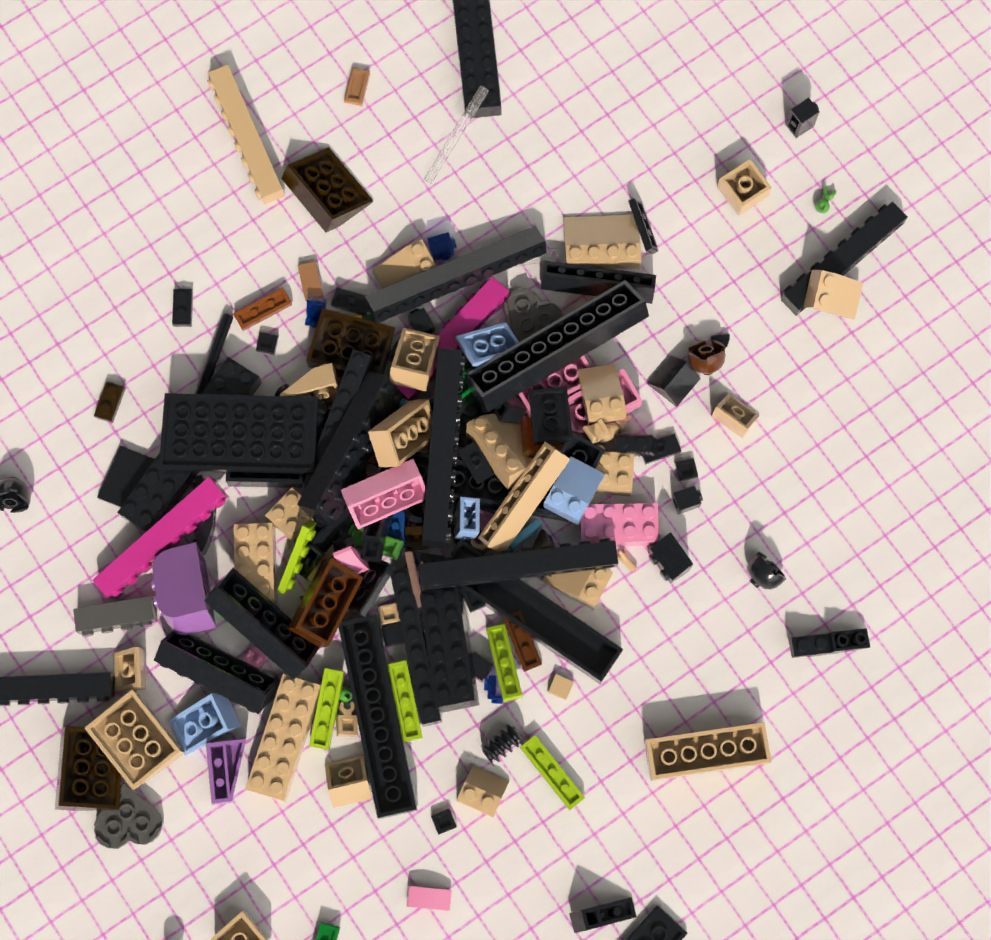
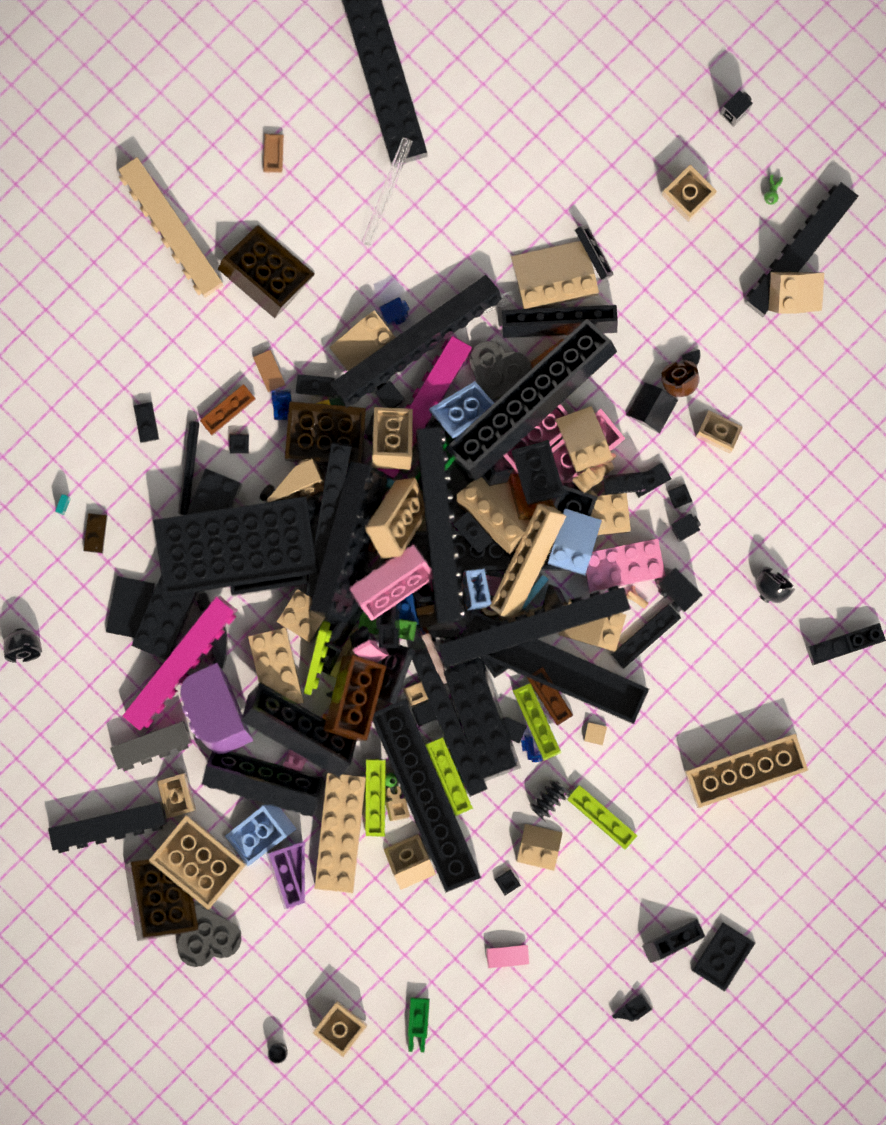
camera: 10 degrees left, 10 degrees up
(84, 368) = (62, 504): none -> teal tile
(629, 599) = (646, 636): none -> black tile

